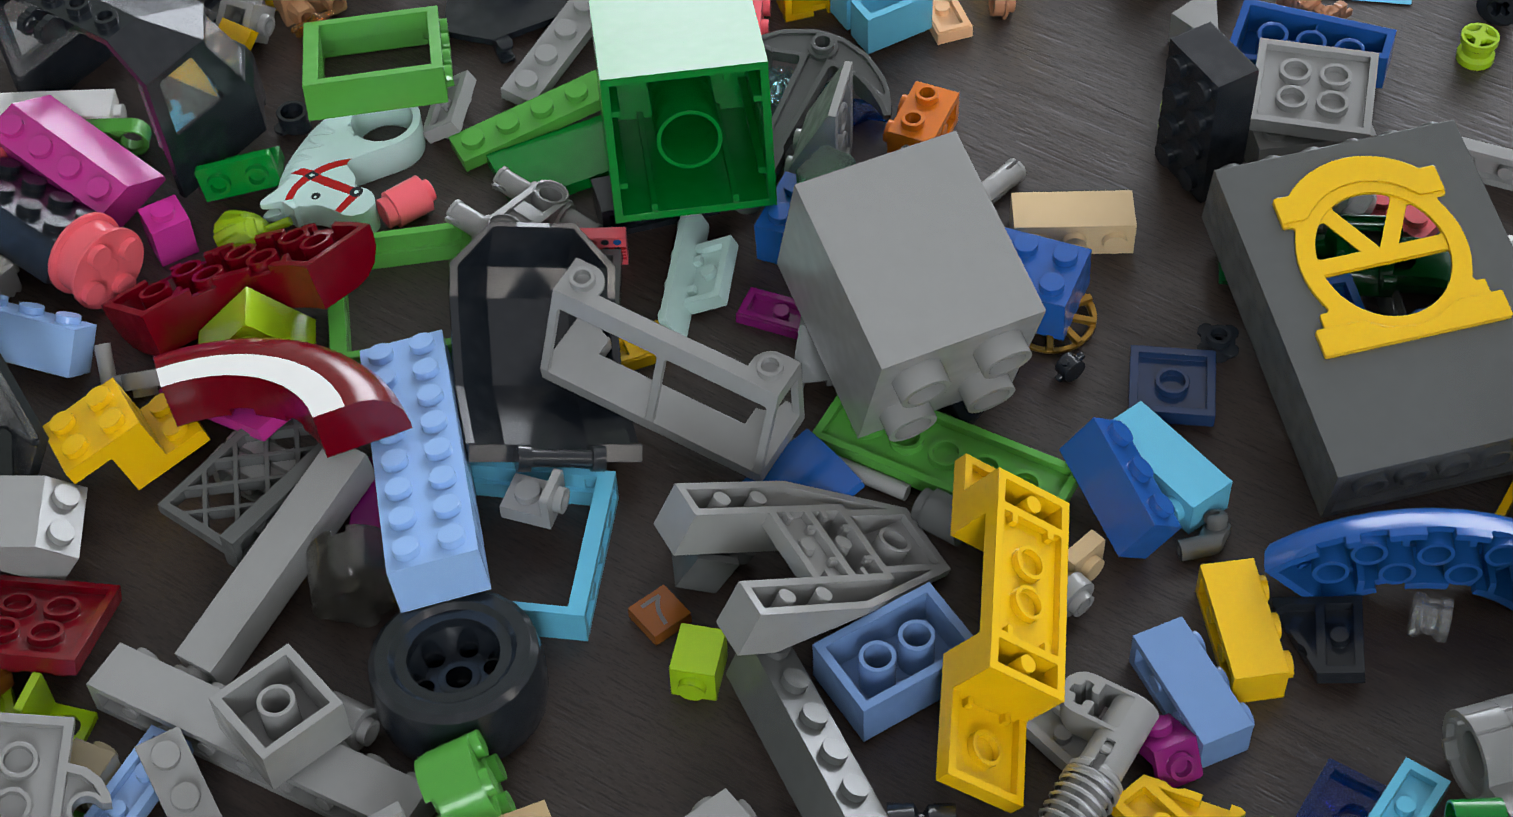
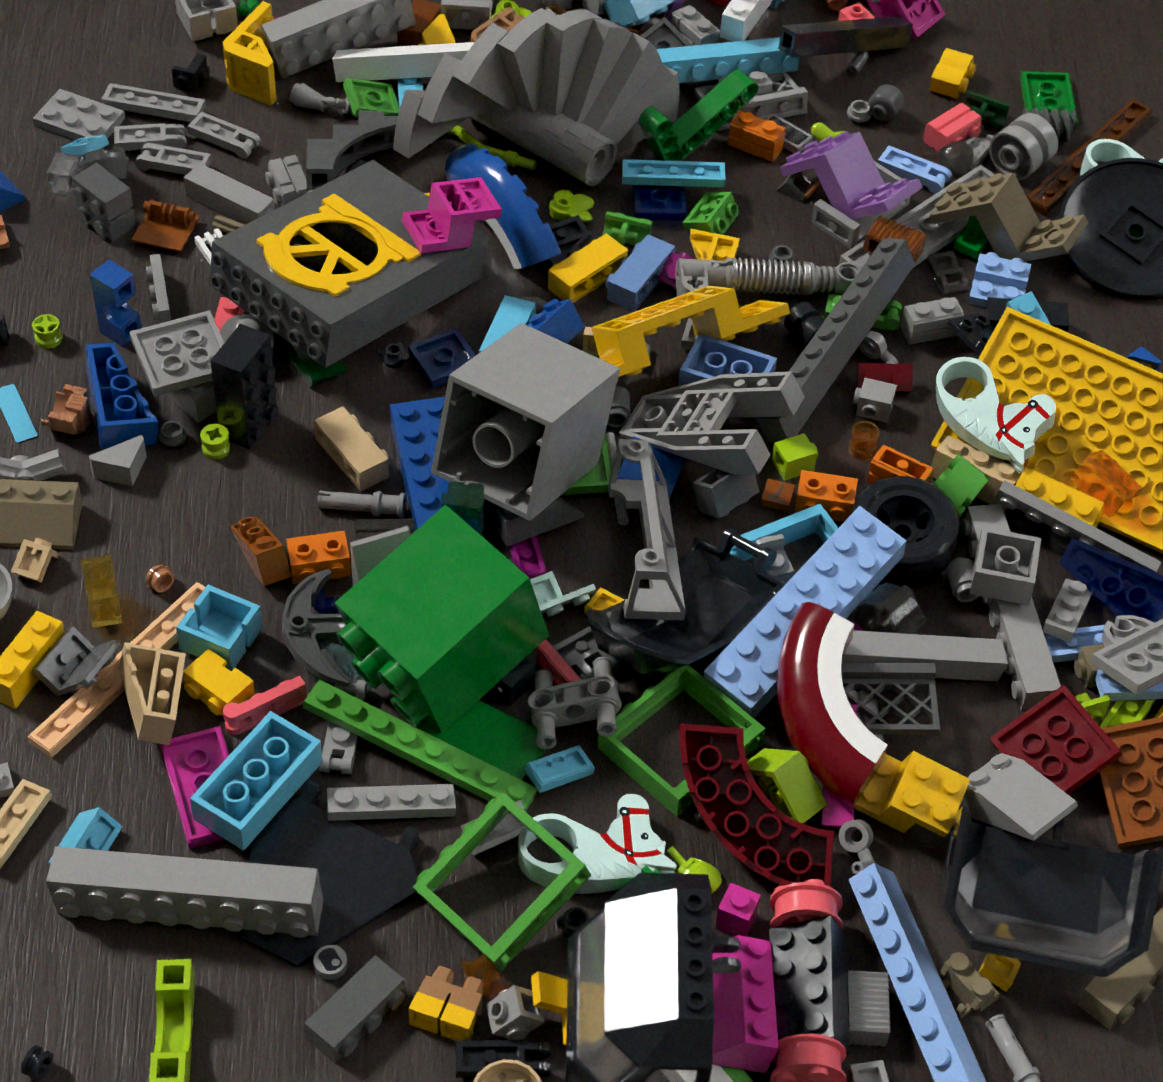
camera: 130 degrees left, 0 degrees up
(406, 202) = (599, 793): coral brick -> none
(470, 180) = (559, 768): none -> medium azure plate
(555, 751) = (893, 463): none -> orange brick
(604, 654) = (828, 492): none -> orange brick
(659, 765) = (864, 440): none -> clear orange wheel
(979, 84) = (262, 550): none -> dark orange slope
(1288, 746) = (626, 228): none -> bright green hips
(1369, 402) = (451, 215): none -> dark pink bracket
(1407, 702) = (569, 205): none -> lime plate
(1465, 58) = (111, 290): none -> blue arch

